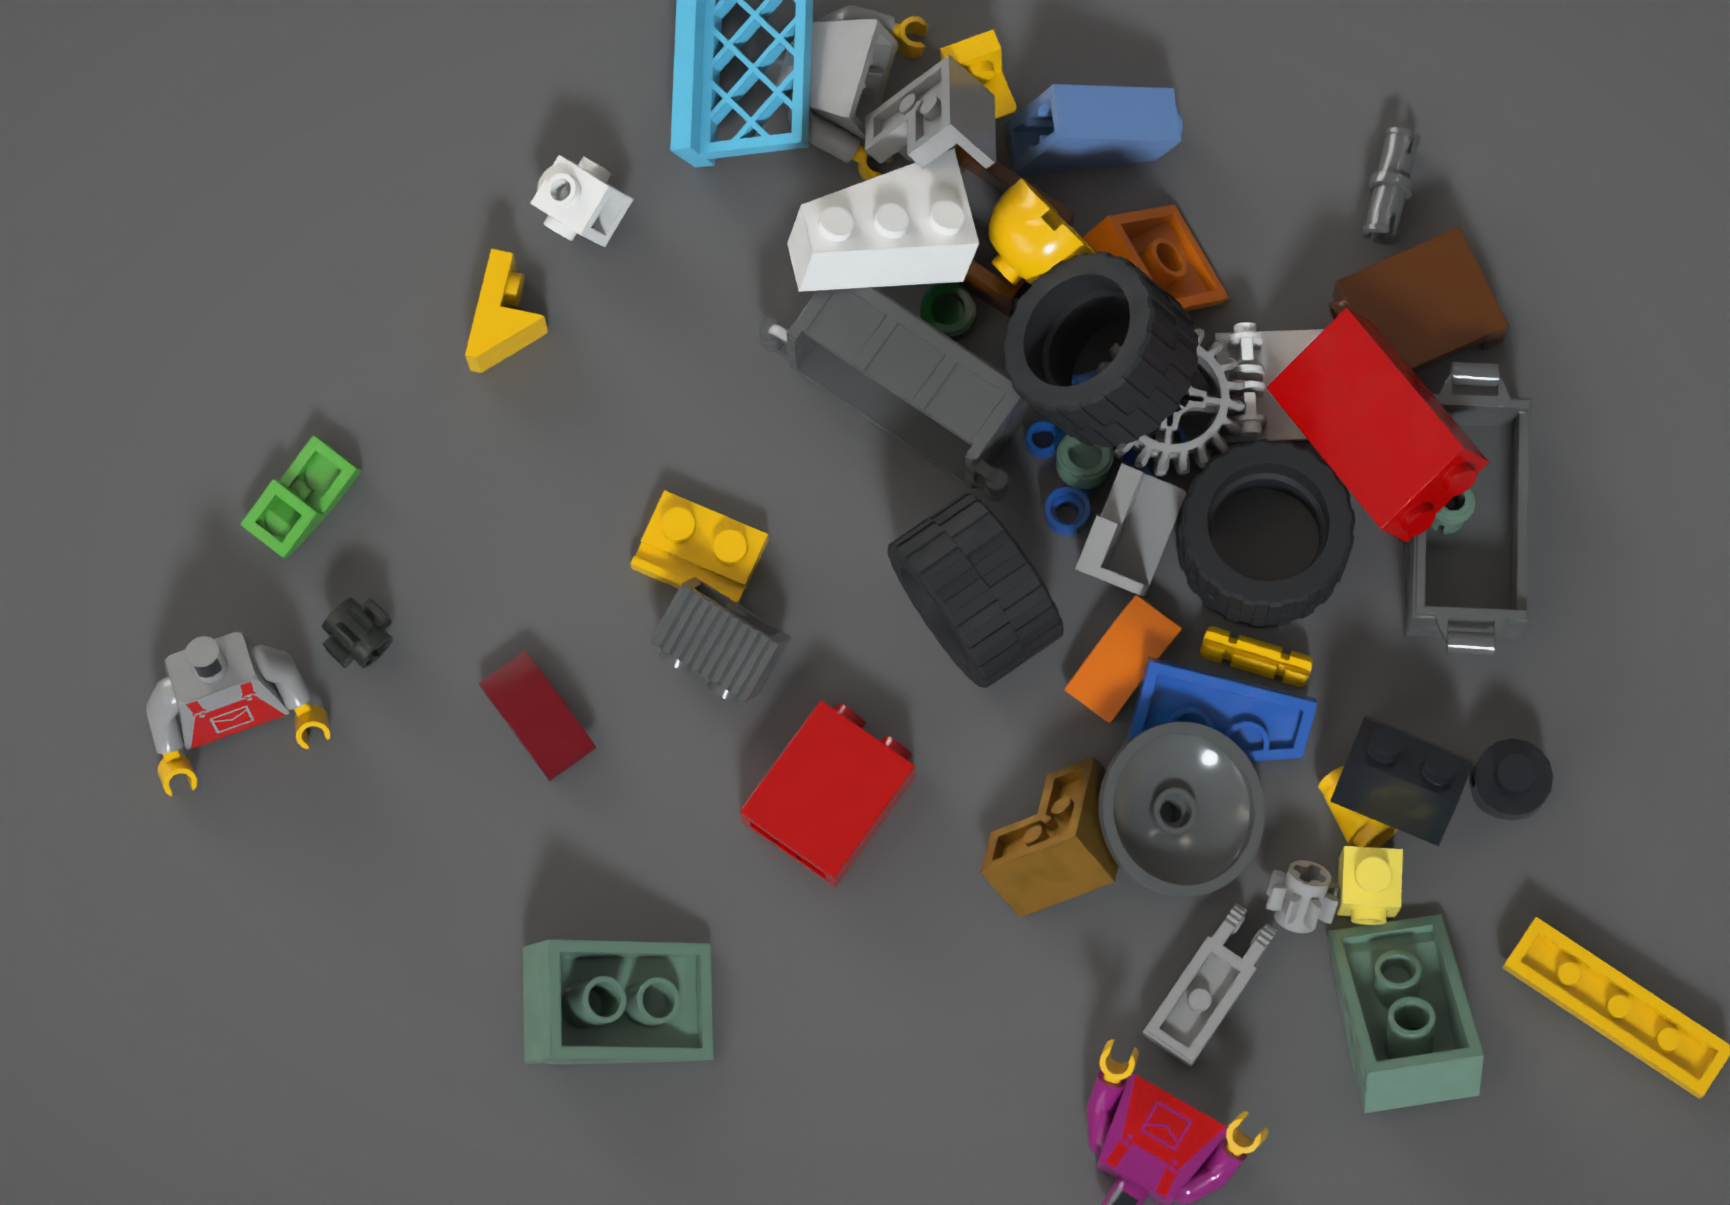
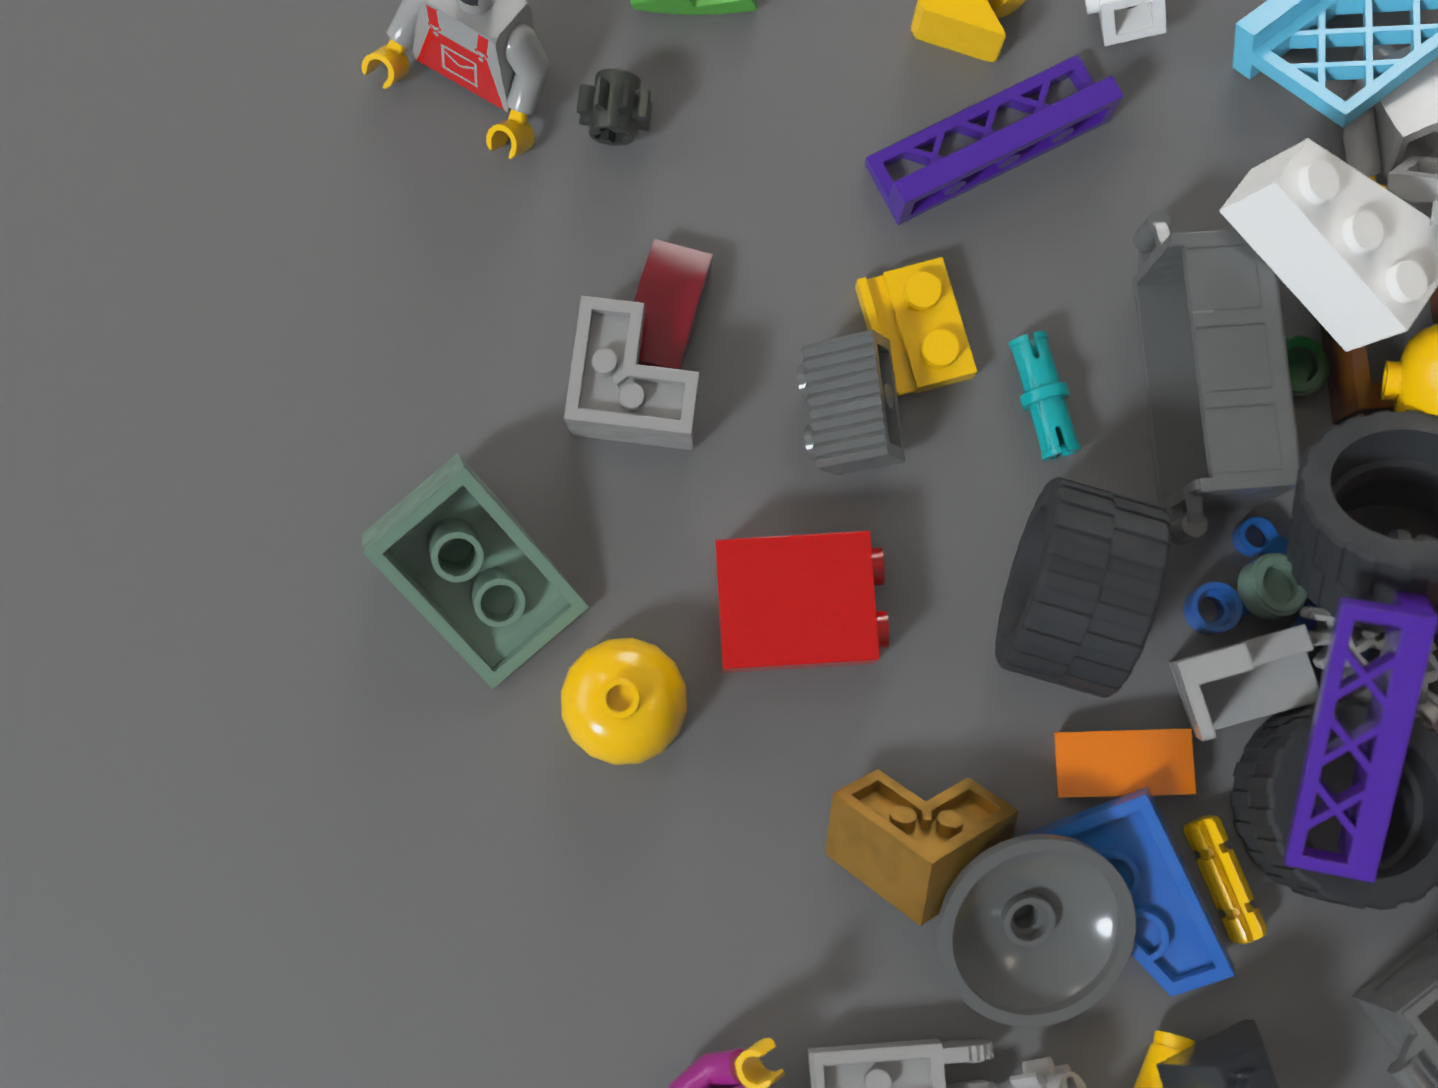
camera: 50 degrees right, 5 degrees up
(575, 800) = (616, 396): none -> light grey panel
(621, 381) = (995, 150): none -> dark purple fence
(798, 972) = (623, 701): none -> yellow cylinder
(824, 501) = (1044, 396): none -> teal pin
(1215, 475) = (1376, 744): none -> dark purple fence

